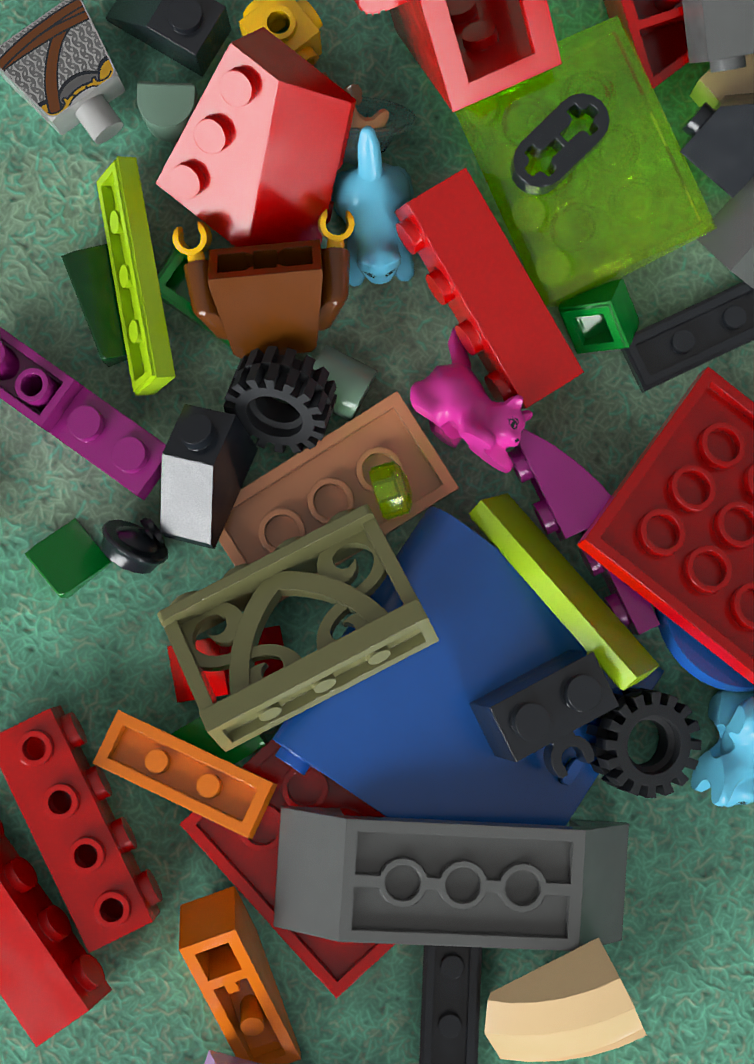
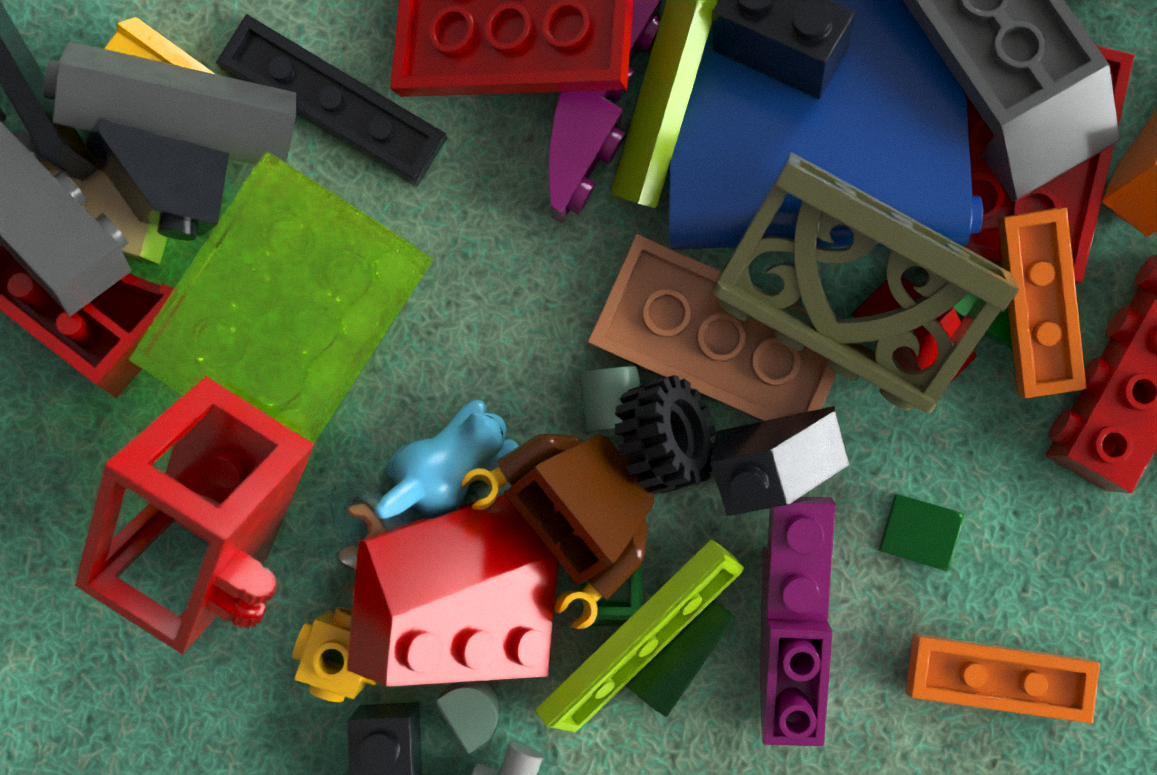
camera: 130 degrees left, 0 degrees up
(134, 546) = (873, 481): black hat -> none
(391, 490) = (681, 284): clear neon green tile -> none
(462, 410) = (567, 276): dark pink animal -> none
(487, 291) = (451, 317): red brick -> none
(550, 134) = (283, 316): black beam -> none
(601, 318) = (408, 207): green slope -> none

